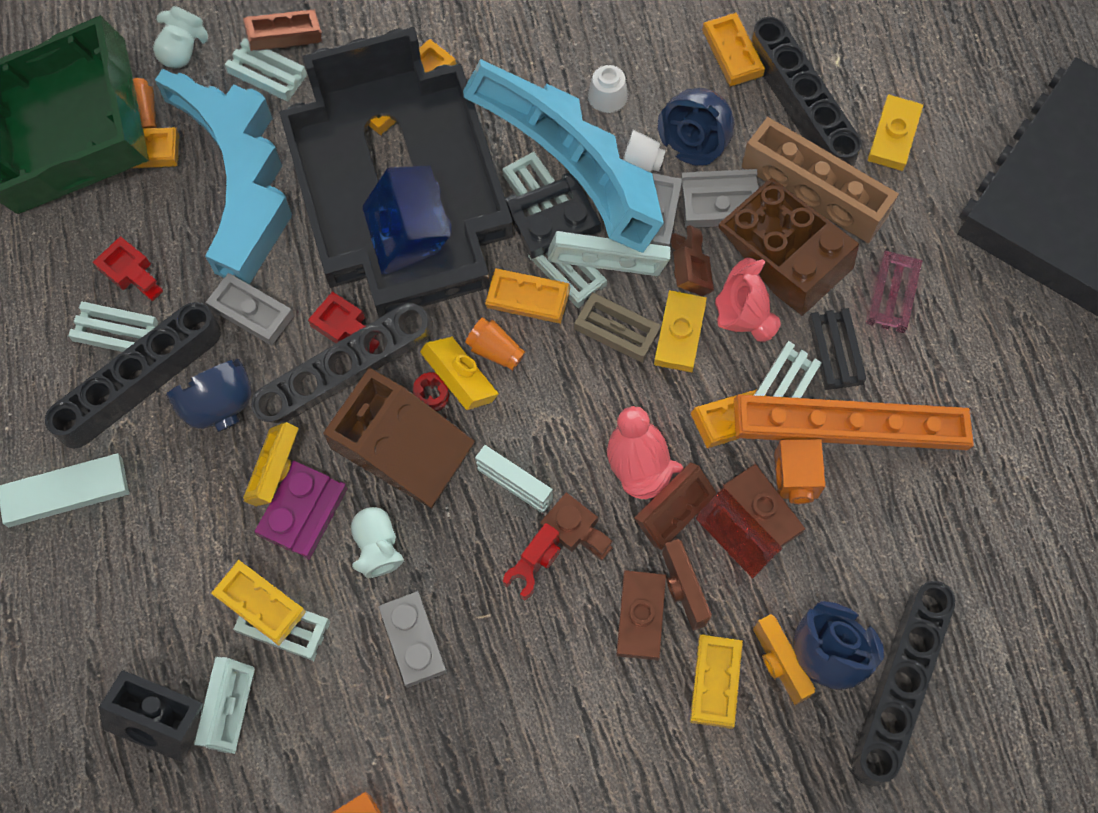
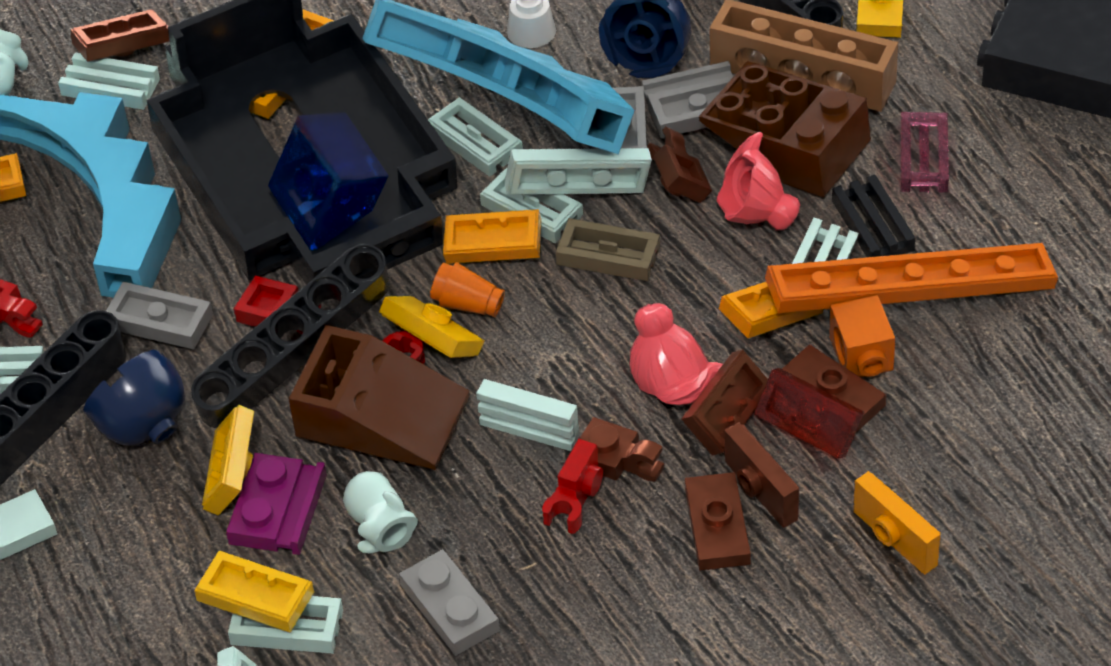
camera: 10 degrees left, 20 degrees down
(569, 216) = (487, 167): black plate -> none
(644, 152) = (592, 65): white hat -> none
(680, 331) = (684, 238): yellow plate -> none
(716, 681) = (824, 563): yellow plate -> none
(836, 647) = (951, 492): dark blue cylinder -> none
(889, 697) = (1042, 517): black beam -> none

